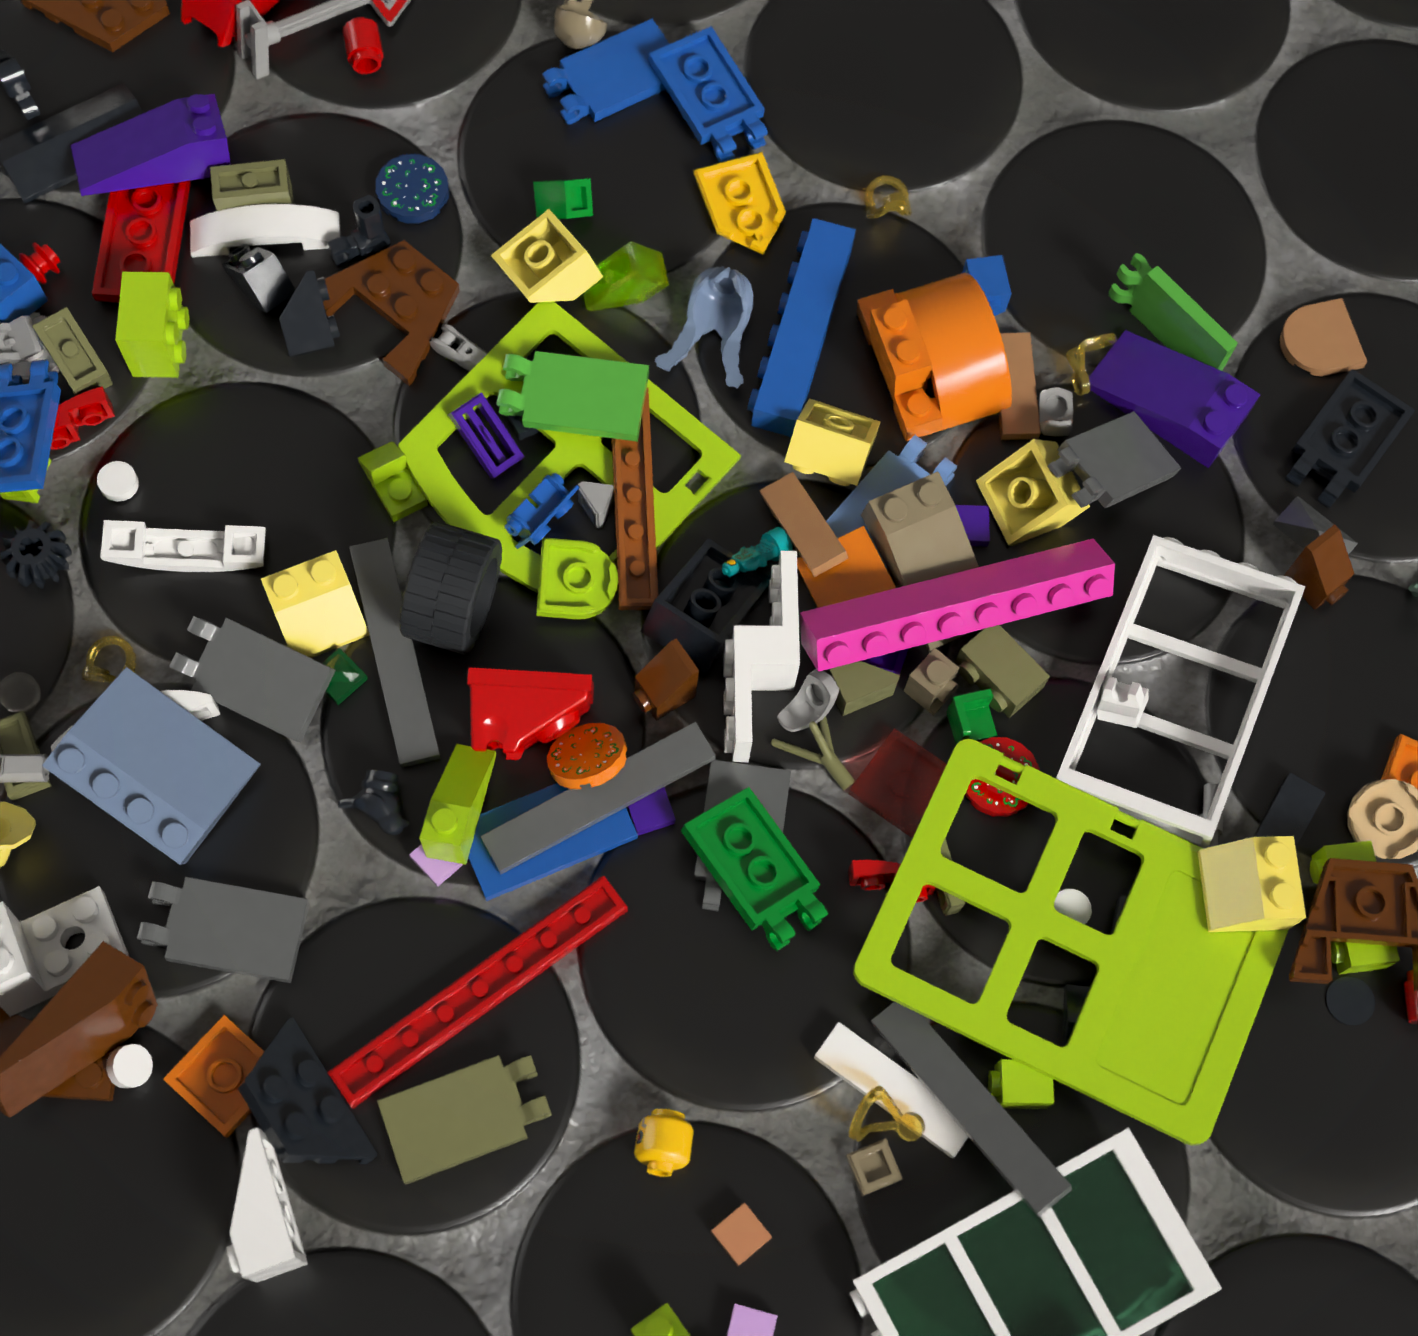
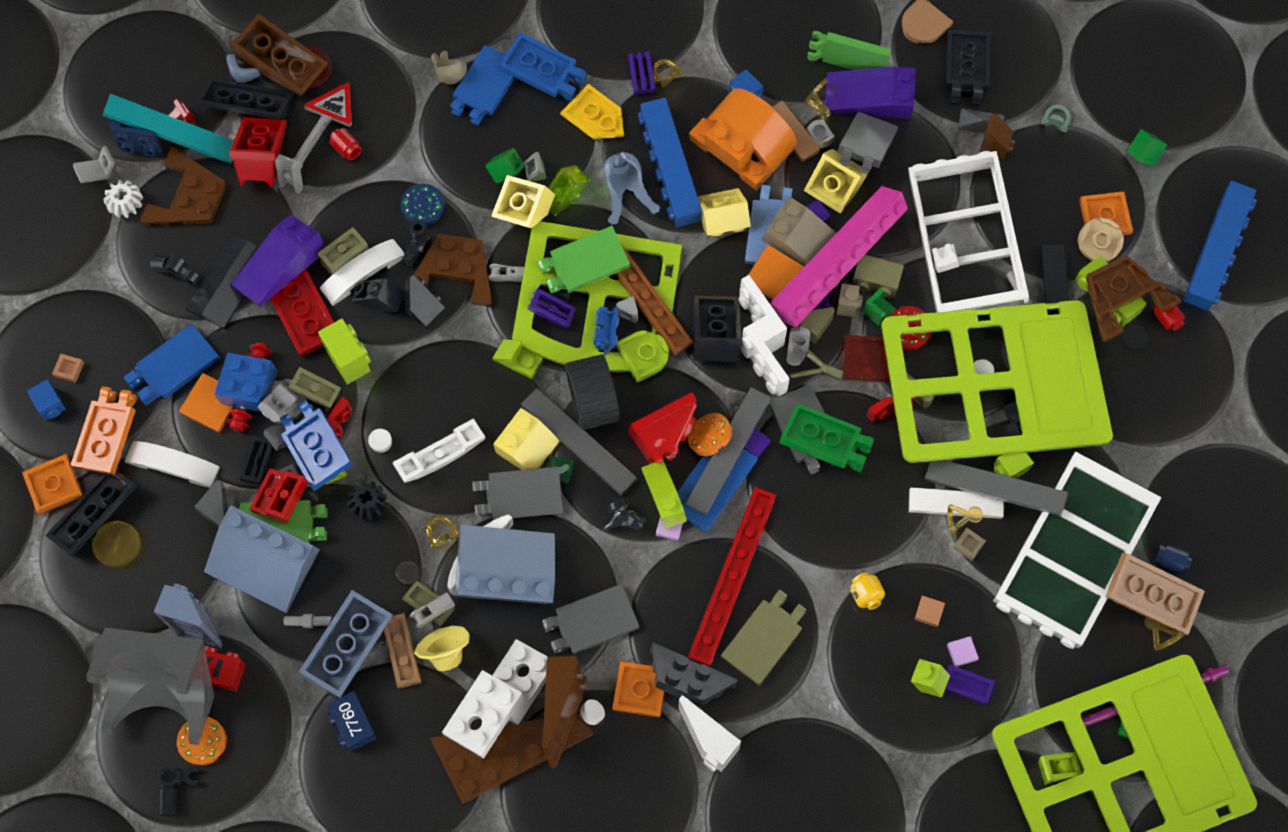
camera: 25 degrees left, 0 degrees up
(605, 227) = (534, 168): none -> light grey slope
(666, 681) = (724, 375): reddish brown slope -> none
(751, 558) = (729, 280): teal piece -> none
(804, 524) = (737, 260): medium nougat tile -> none
(859, 157) = (639, 57): none -> dark purple tile
(1252, 885) = (1060, 307): light yellow slope -> none

